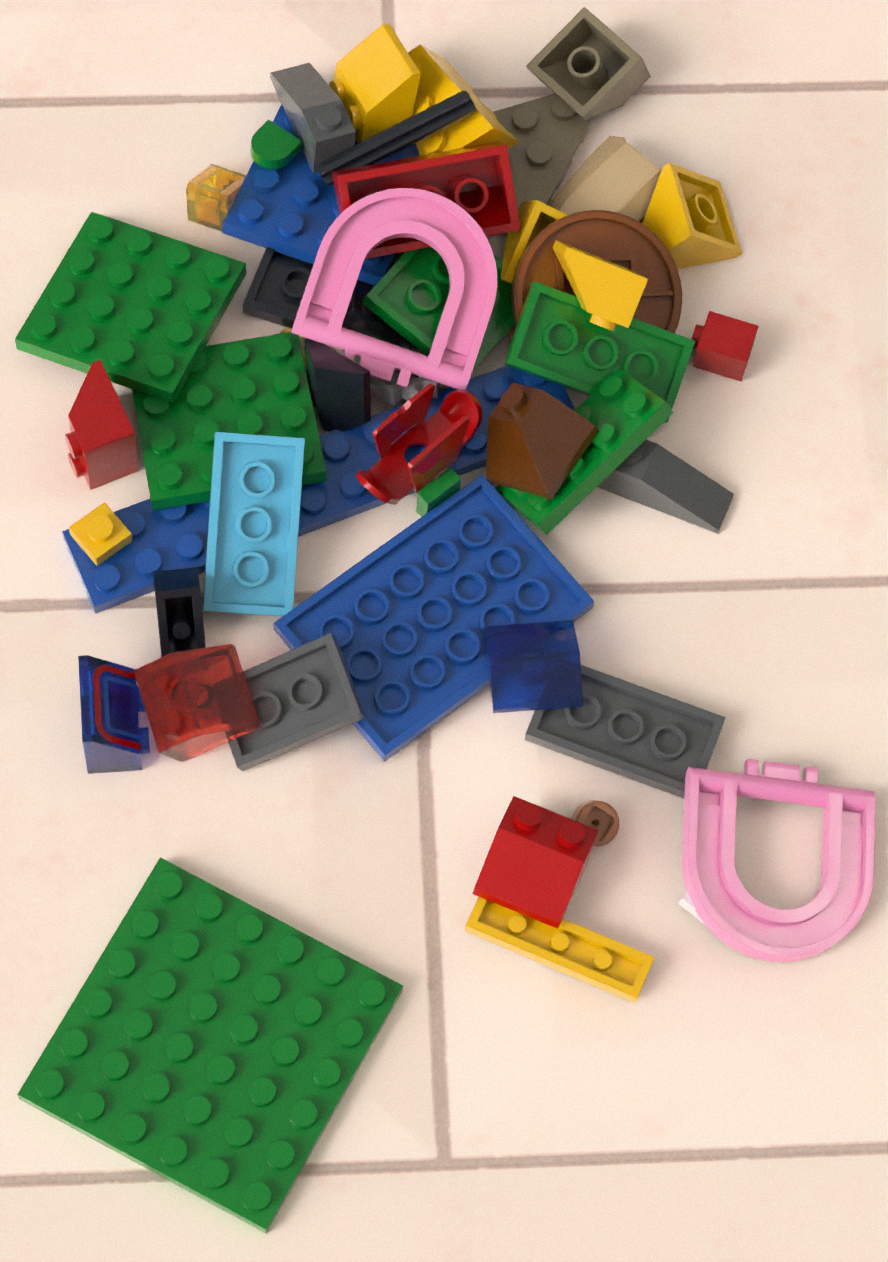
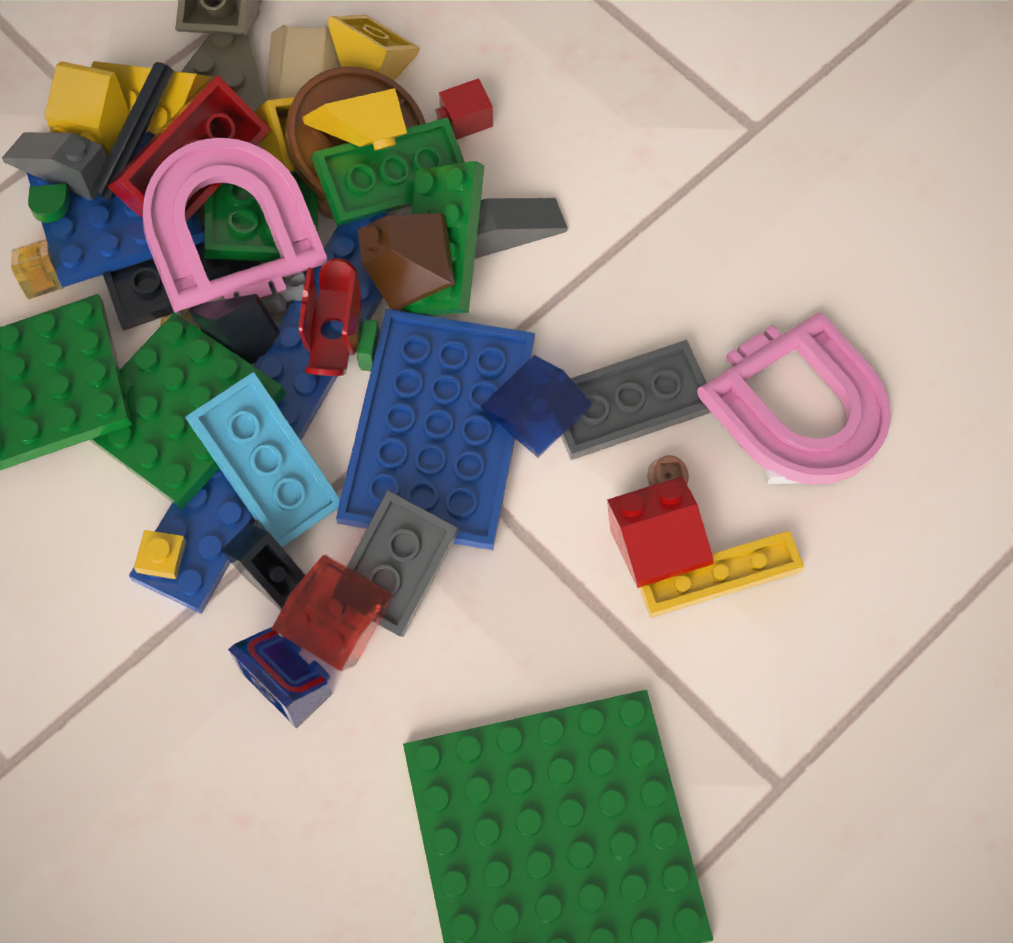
camera: 35 degrees left, 0 degrees up
(100, 432) = (99, 483): red slope -> none

